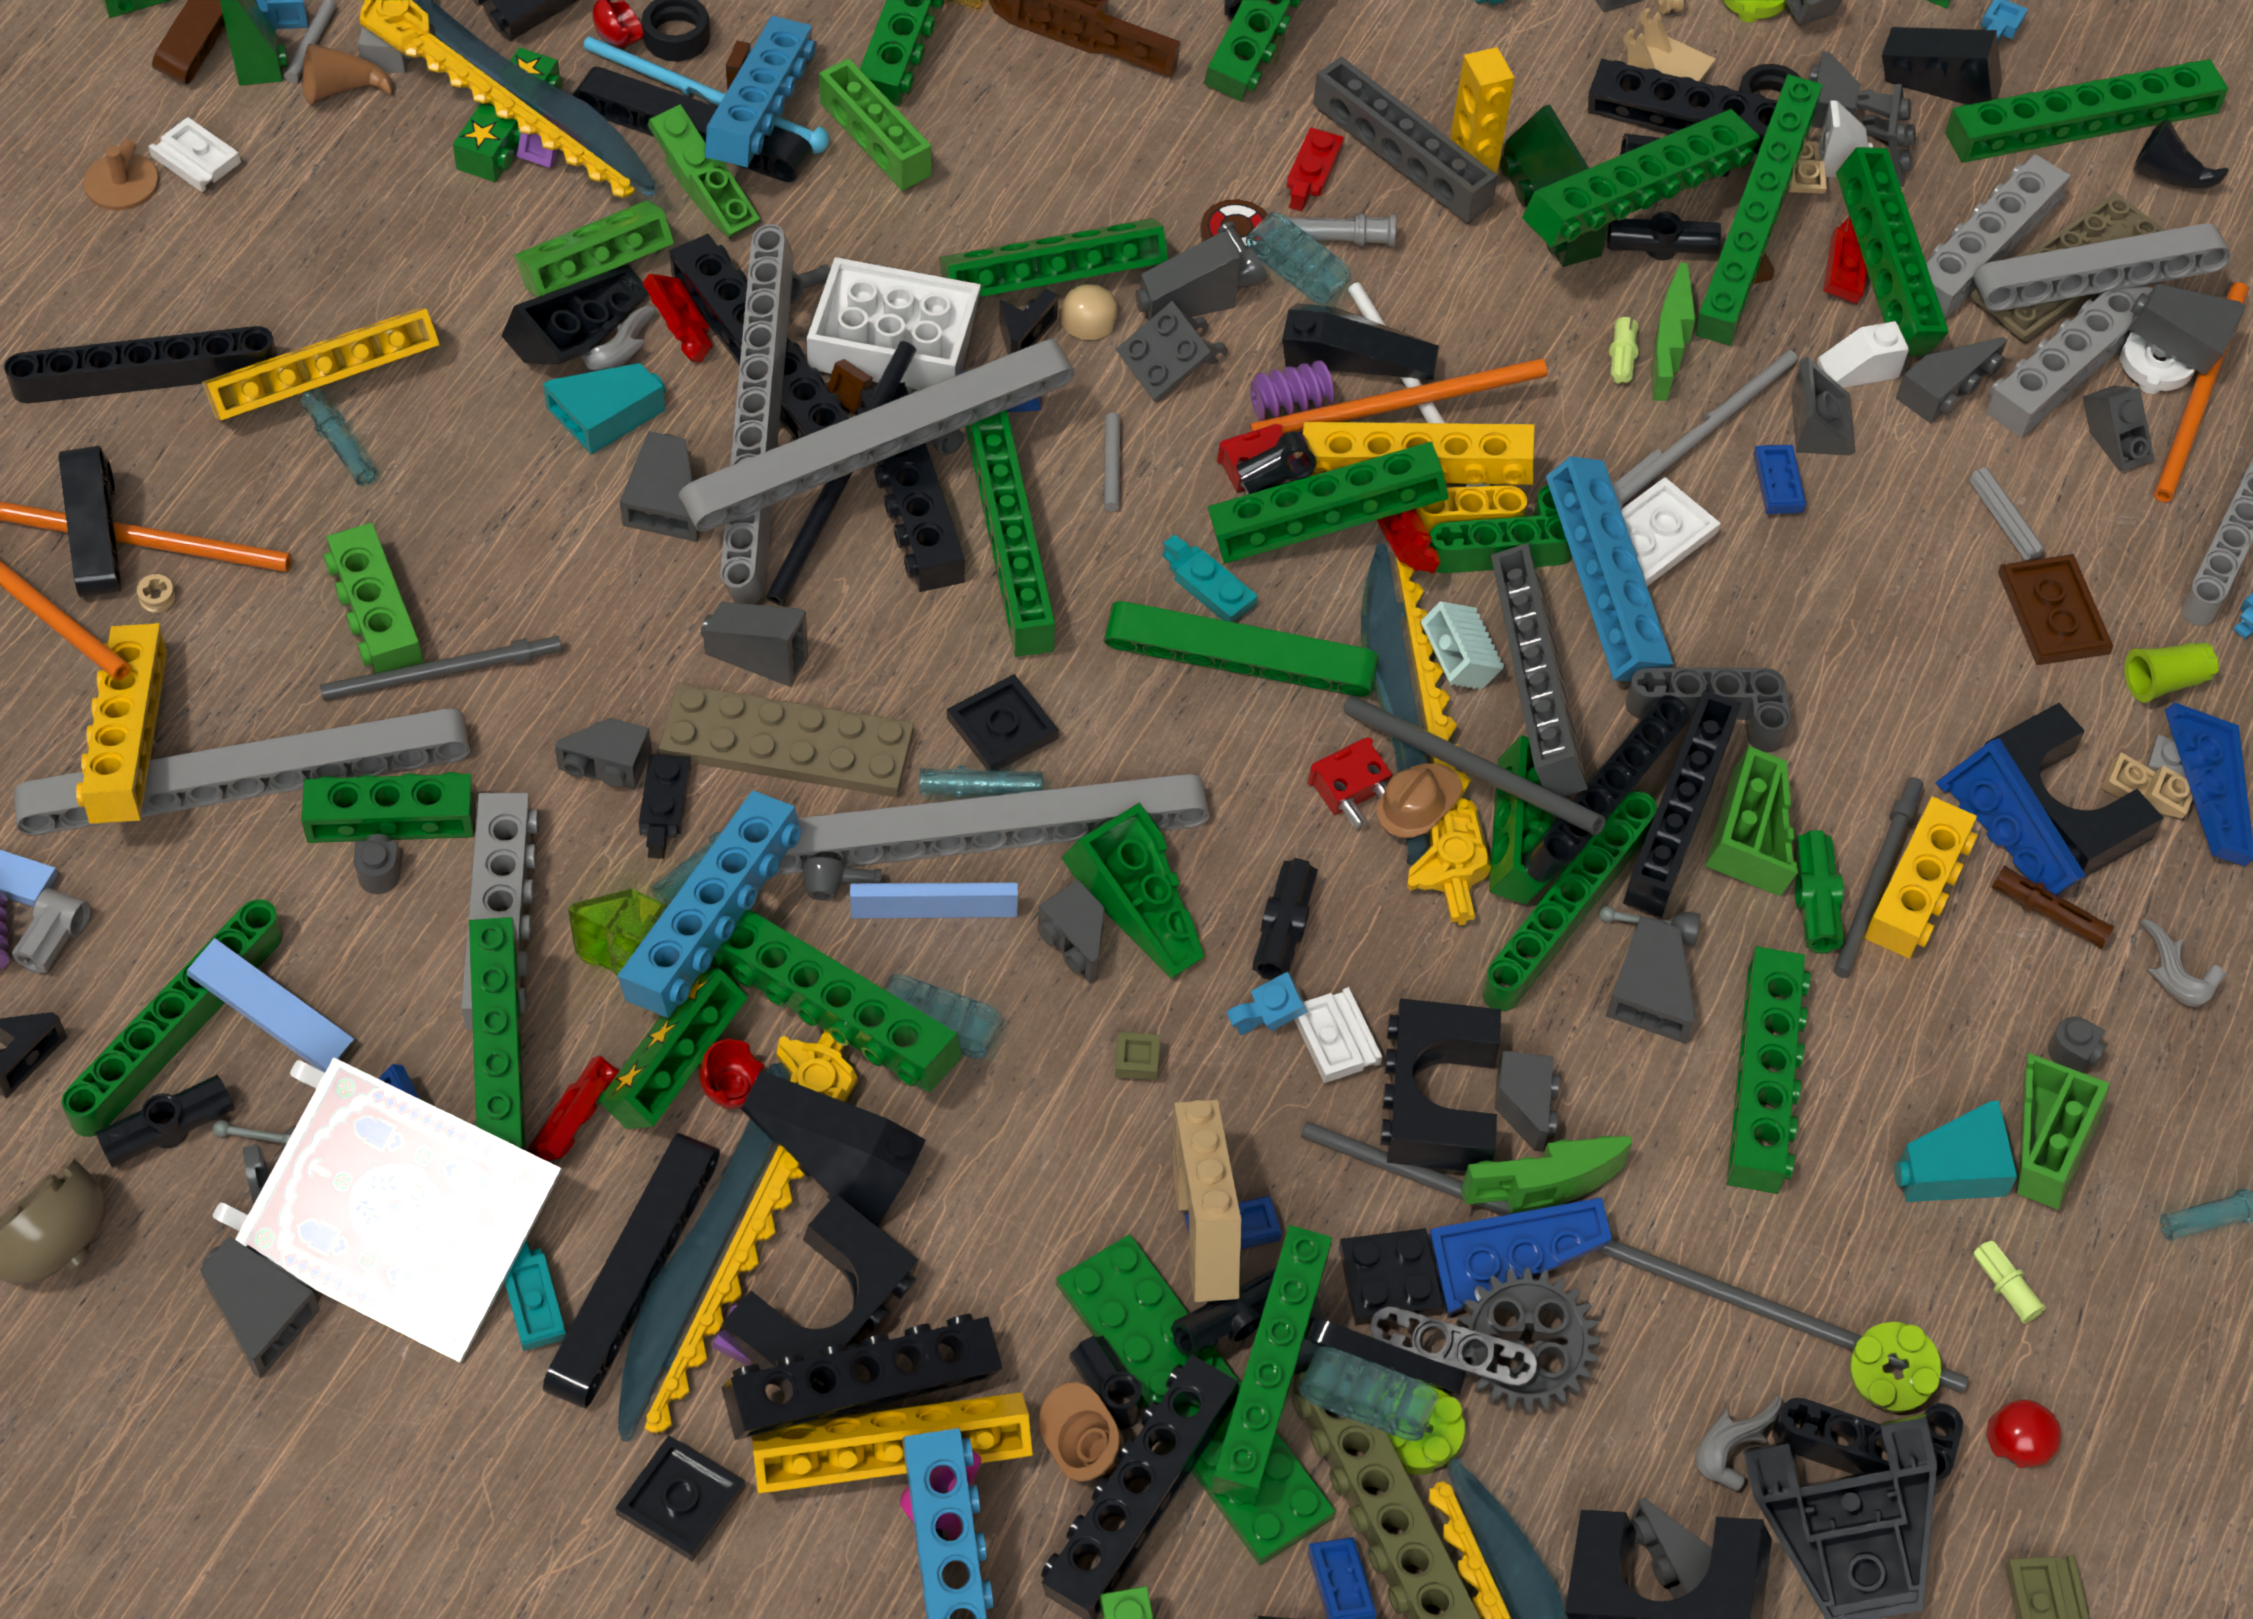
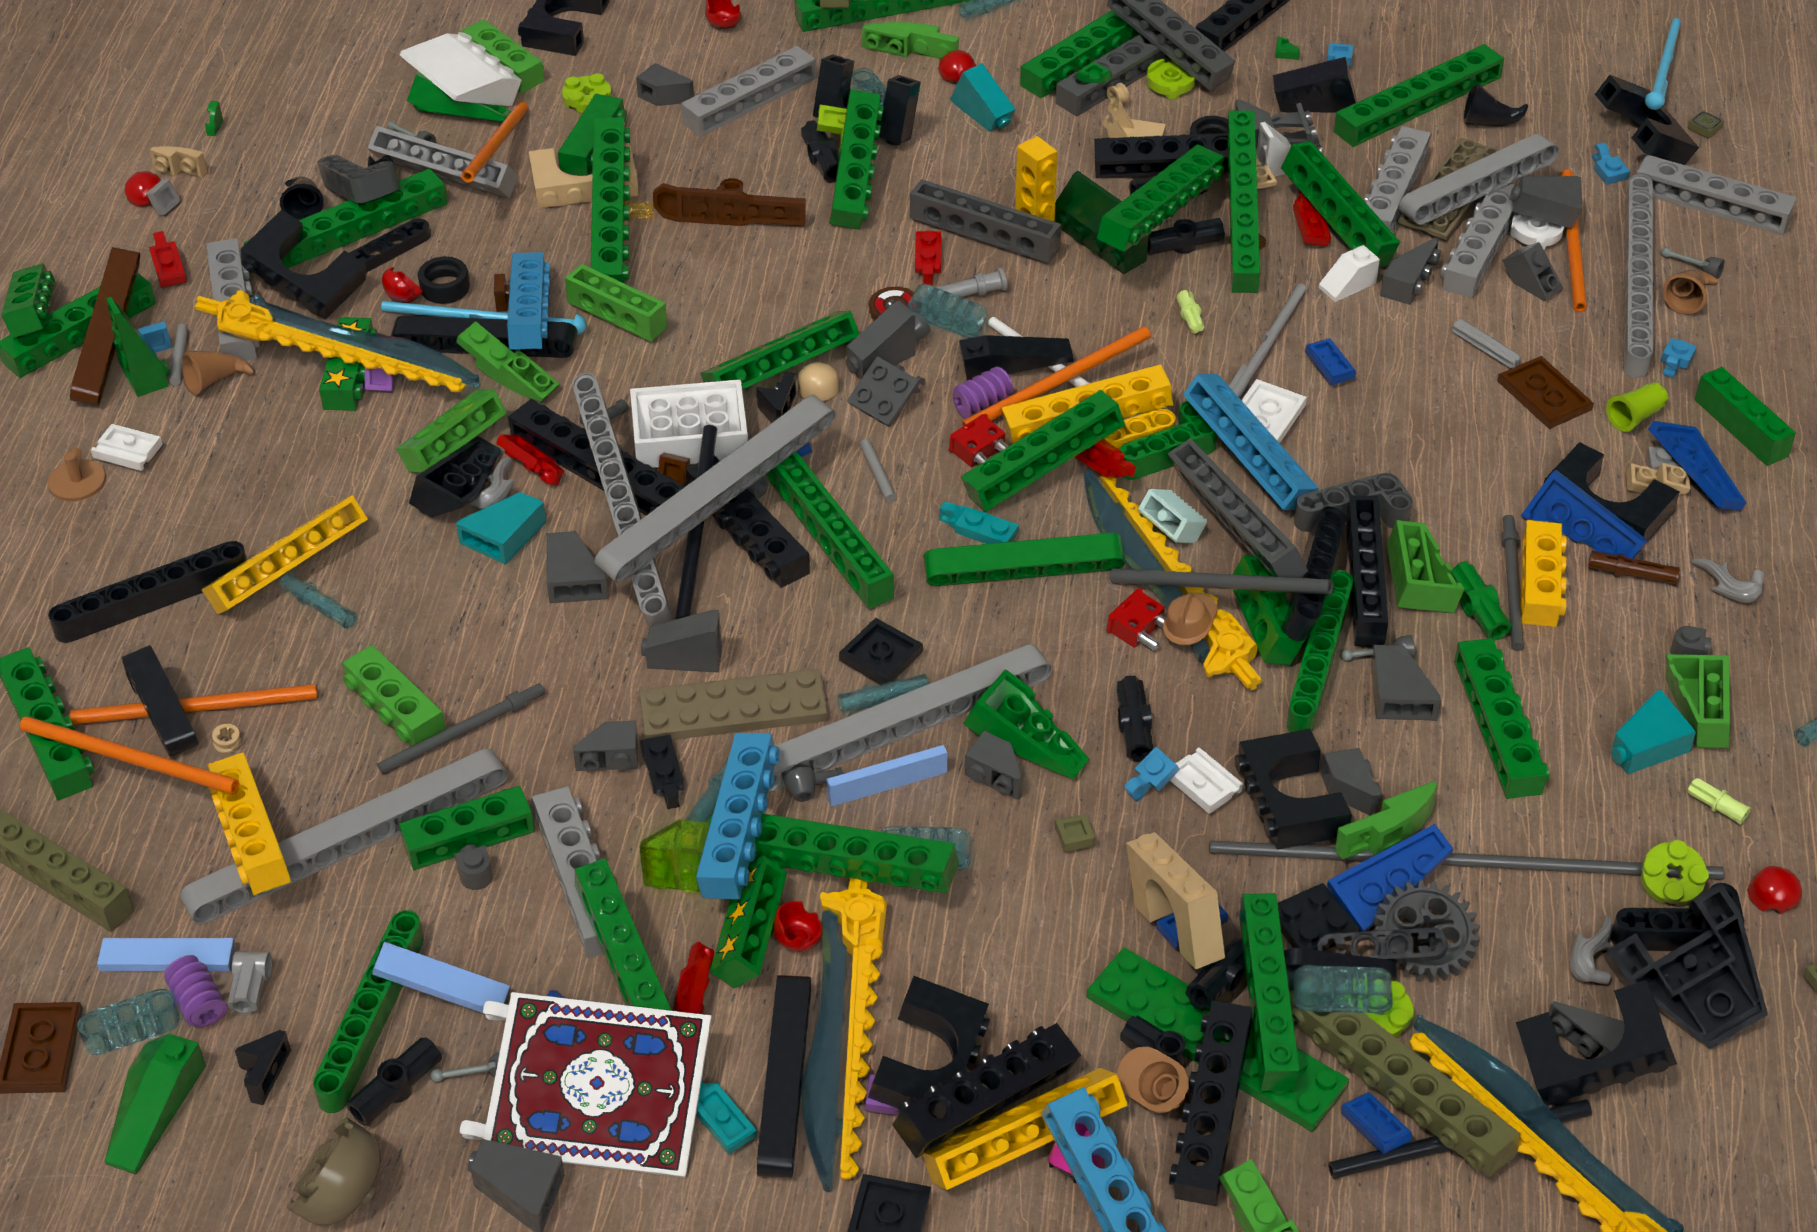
camera: 15 degrees left, 10 degrees down
(255, 1169) = (476, 1094): dark grey tile -> none
(836, 1143) = (894, 943): black wedge -> none
(1274, 466) = (997, 437): black piece -> none
(1672, 333) = (1217, 293): bright green slope -> none
(1821, 413) = (1337, 315): dark grey slope -> none

